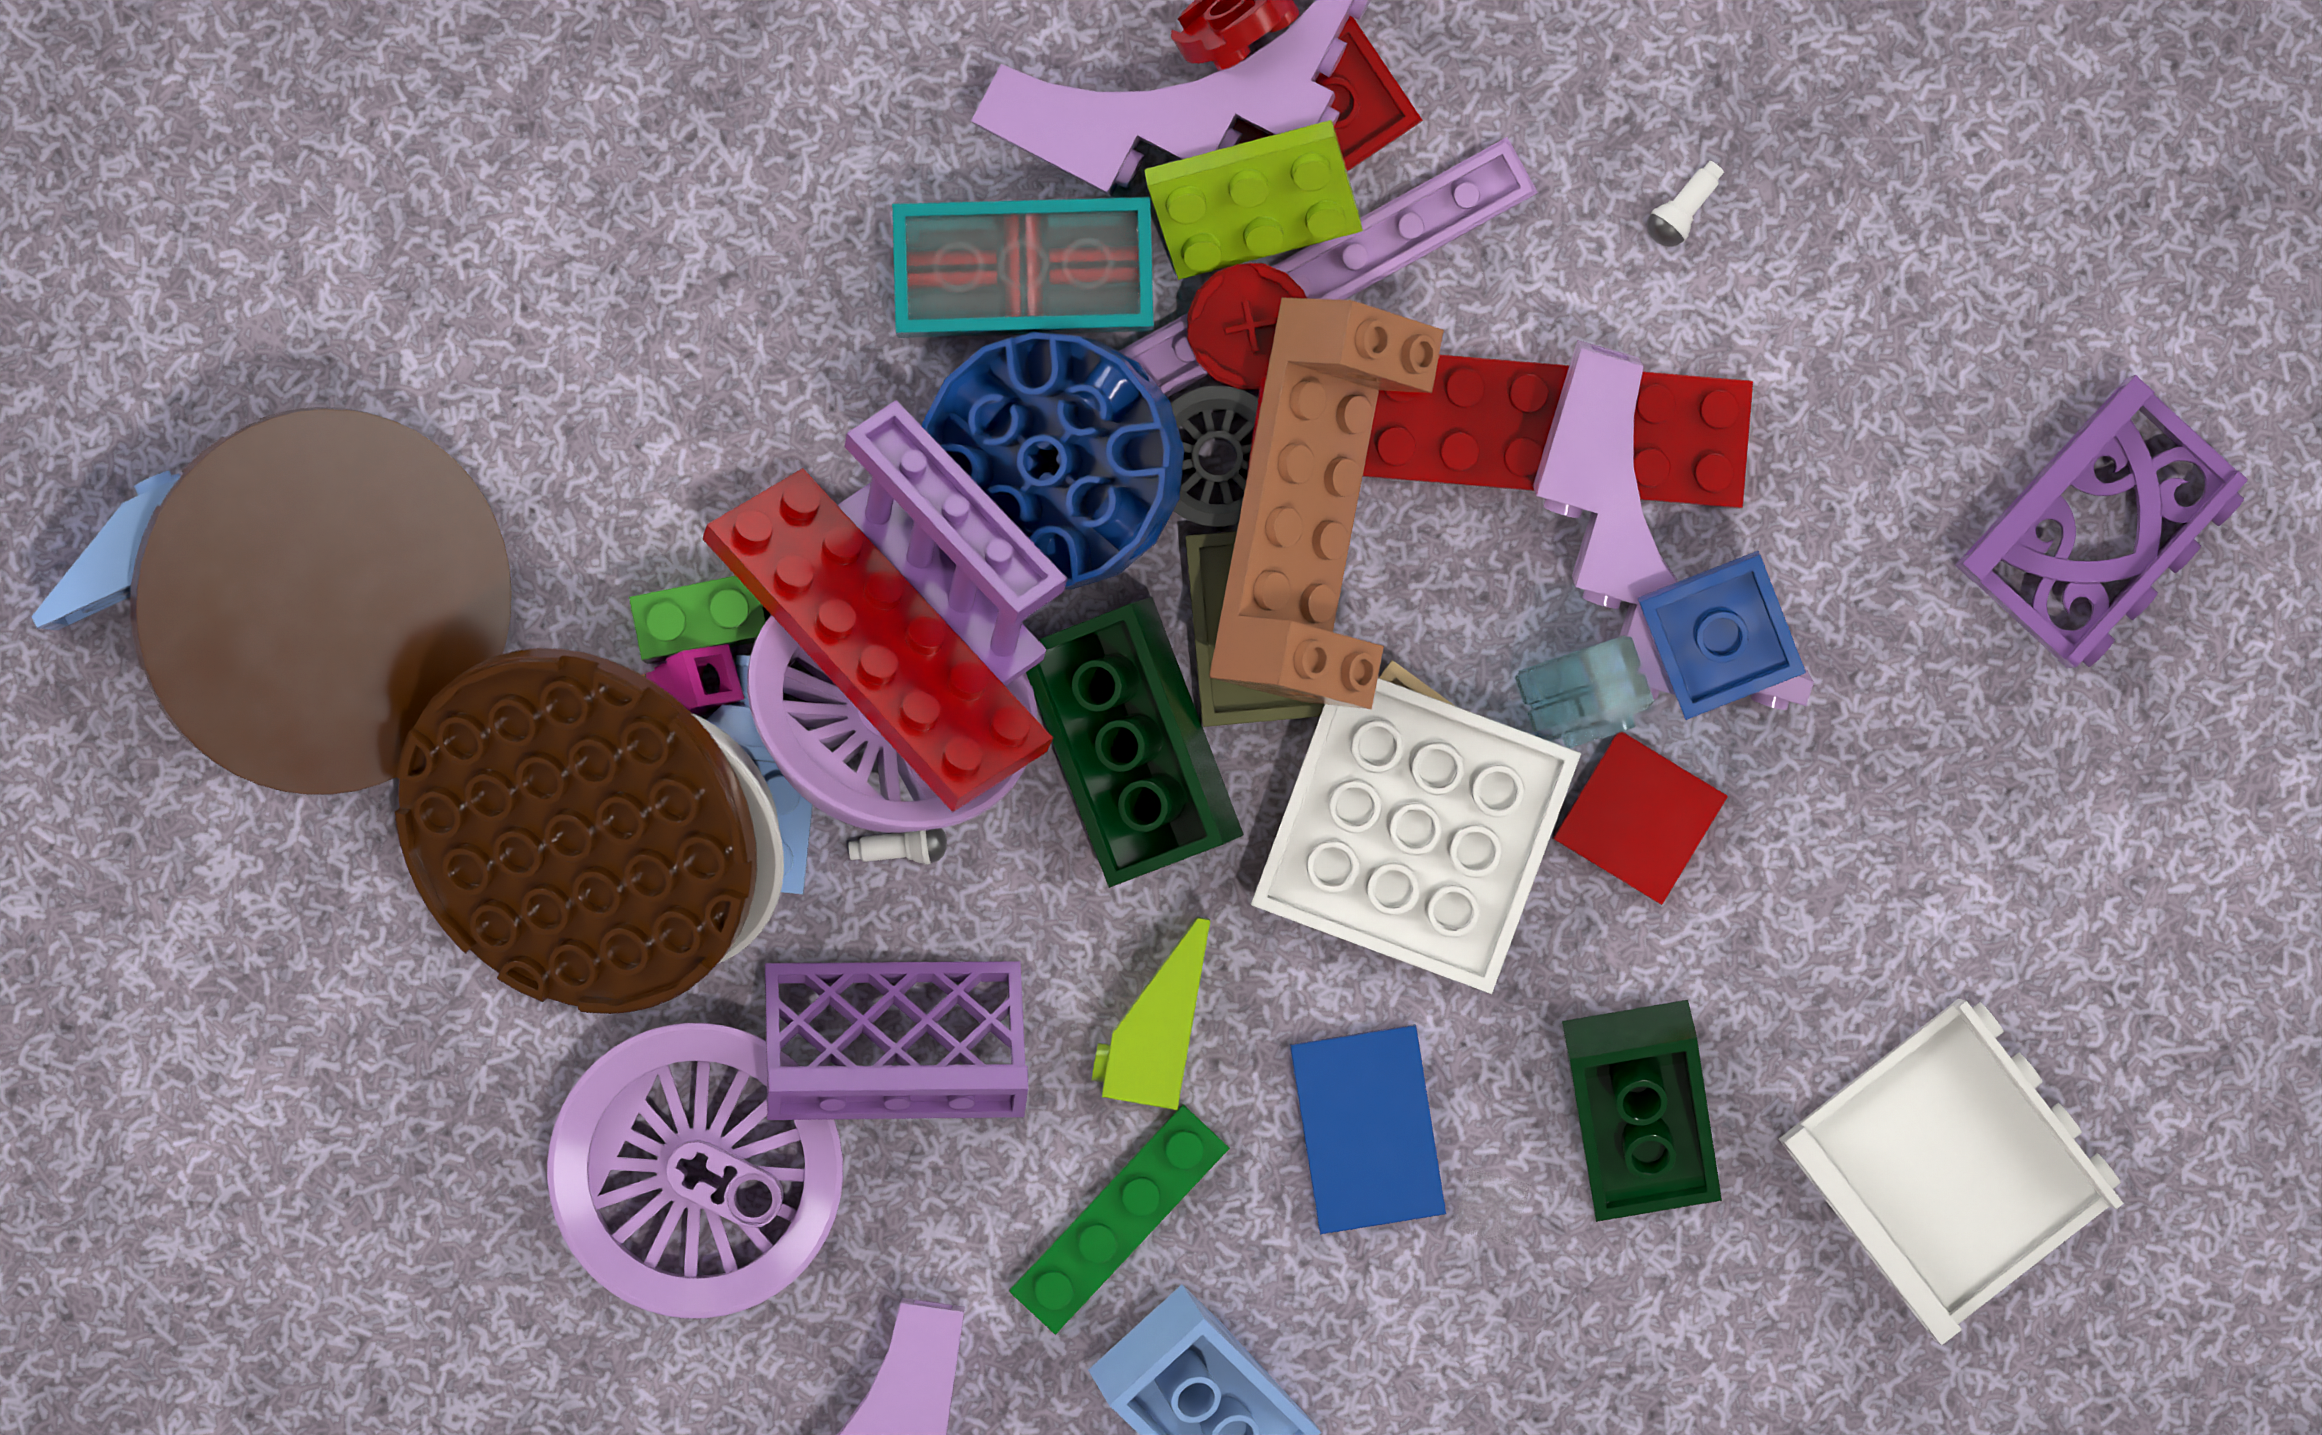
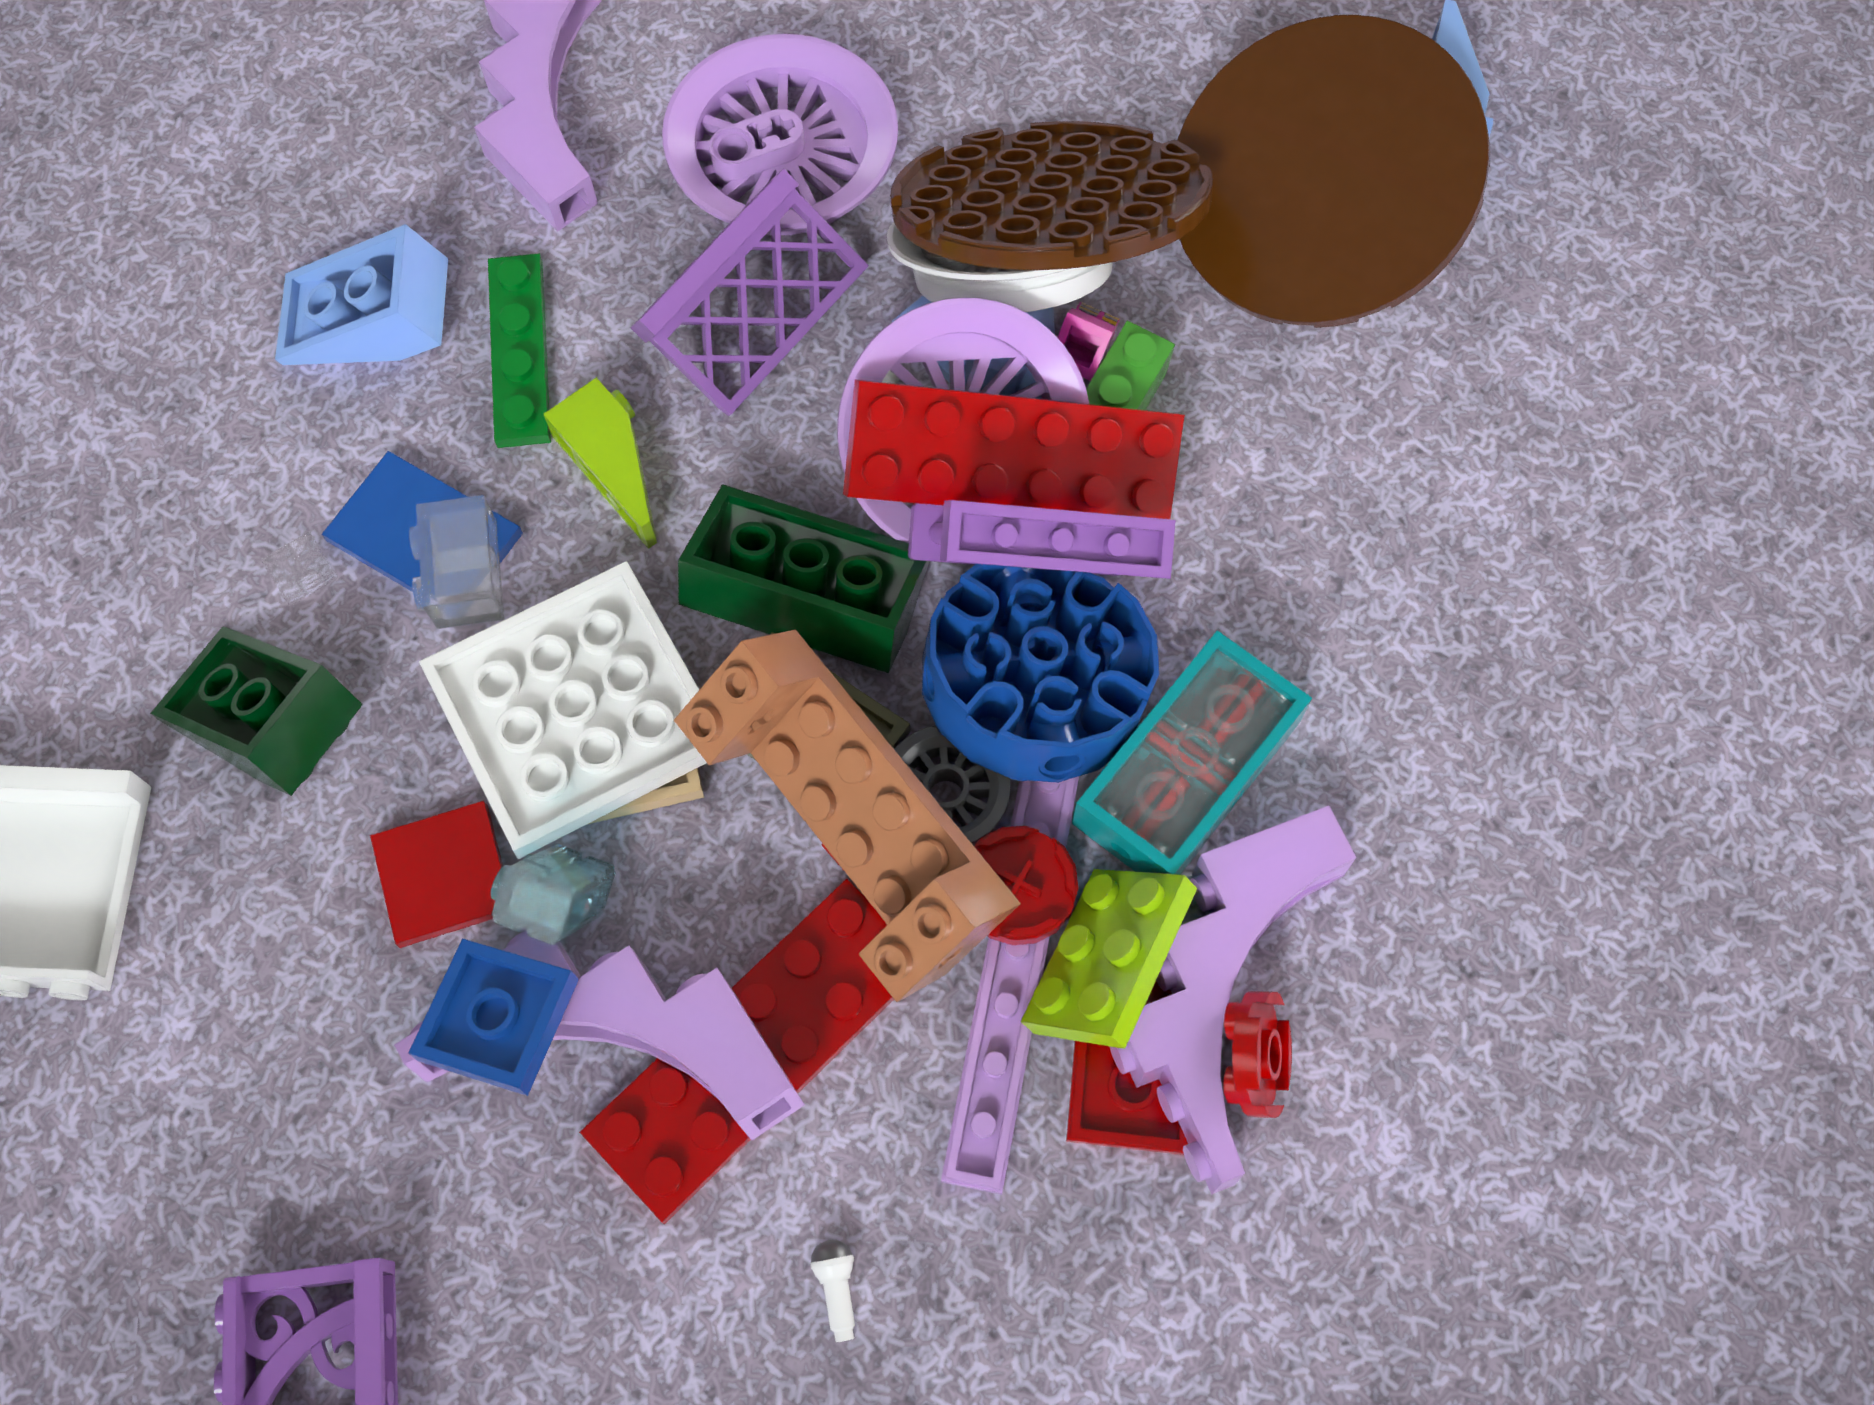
camera: 130 degrees right, 20 degrees down
(1376, 1052) = (457, 562): none -> clear brick

